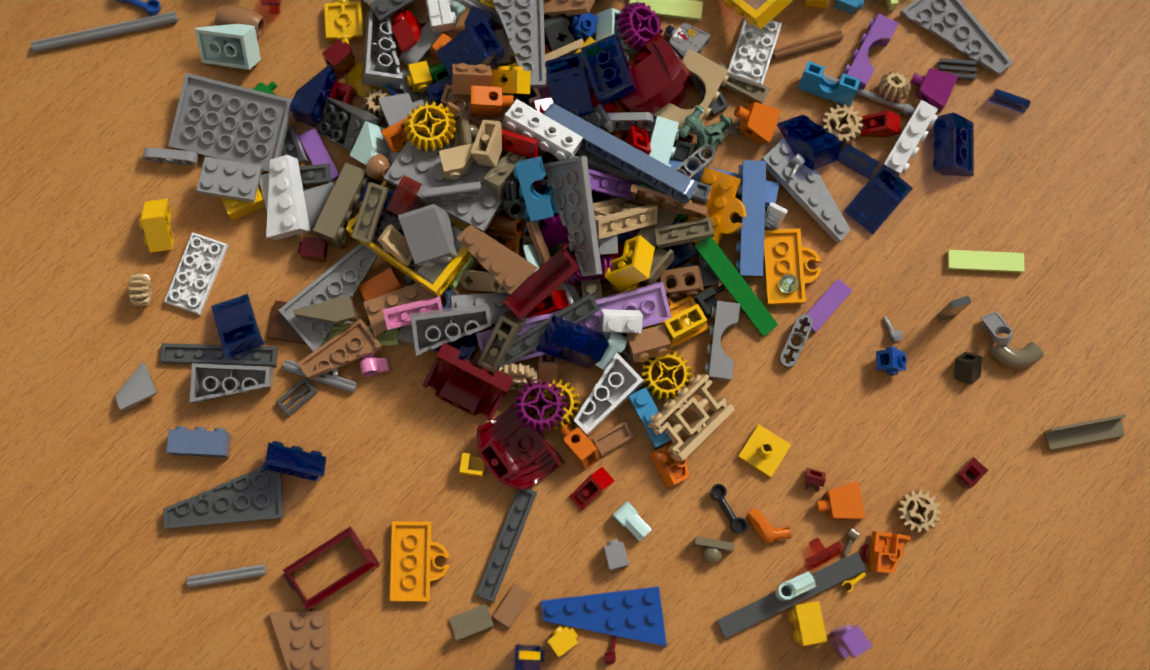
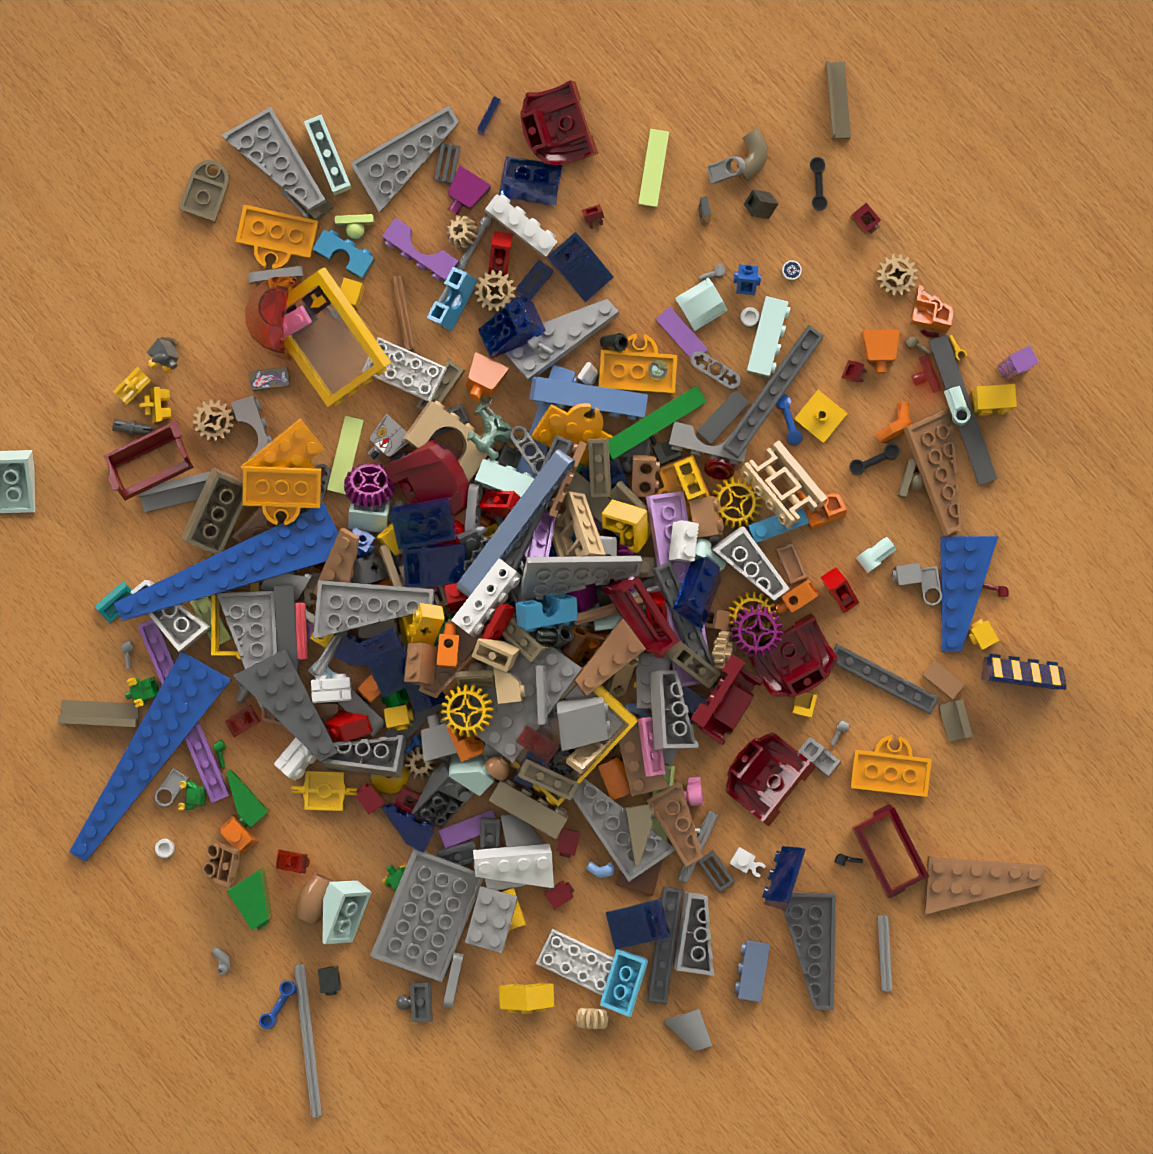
camera: 80 degrees left, 10 degrees up
(148, 127) = (420, 1002): none -> dark grey plate
(163, 43) = (329, 980): none -> pearl dark grey brick
(177, 314) = (624, 982): none -> medium azure slope
(261, 246) = (559, 894): none -> dark red brick
(287, 286) = (601, 872): none -> light blue arm
(309, 424) = (744, 861): none -> white plate
(319, 521) = (841, 859): none -> black hand
(396, 433) = (766, 775): none -> dark red piece
(421, 487) = (819, 756): none -> light grey slope
(454, 507) = (841, 726): none -> light grey hand
(612, 580) = (930, 580): none -> light grey piece
(698, 354) = (719, 469): none -> dark red gear
(735, 572) = (937, 463): none -> medium nougat wing
(740, 426) = (794, 437): none -> blue bar
(750, 354) = (723, 416): none -> dark grey tile
(783, 398) = (772, 391): none -> dark grey tile
(809, 241) = (615, 342): none -> pearl dark grey cone
(836, 388) = (767, 337): none -> light aqua brick
(853, 370) = (749, 317): none -> white tile
(858, 320) = (701, 304): none -> light aqua slope
(906, 406) = (791, 270): none -> tile
(931, 207) = (592, 214): none -> dark red tile
(1011, 163) = (557, 125): none -> dark red piece
(1014, 421) = (818, 166): none -> black bar

